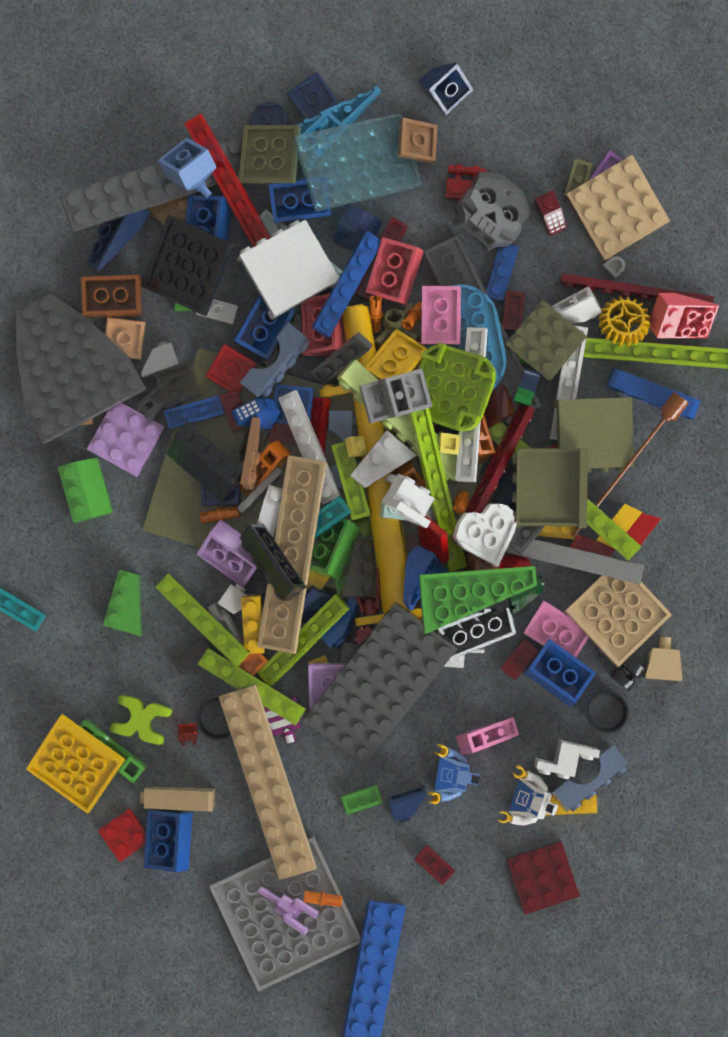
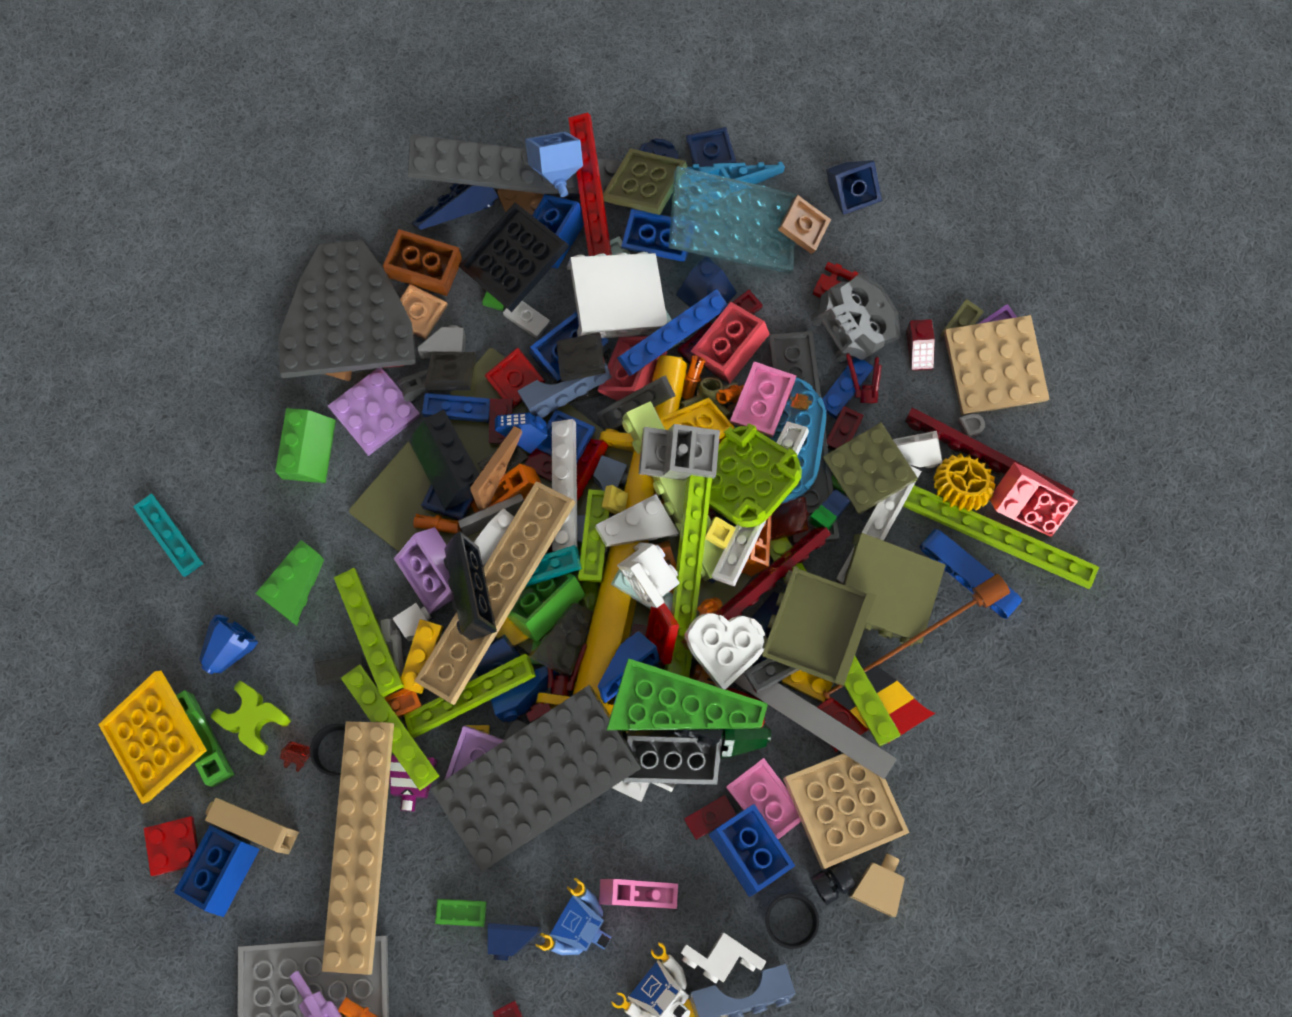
camera: 25 degrees right, 15 degrees down
(96, 672) = (225, 644): none -> blue cone
(281, 335) = (581, 357): none -> clear smoke plate
(472, 307) = (800, 402): none -> clear orange plate
(522, 270) = (869, 392): none -> dark red plant

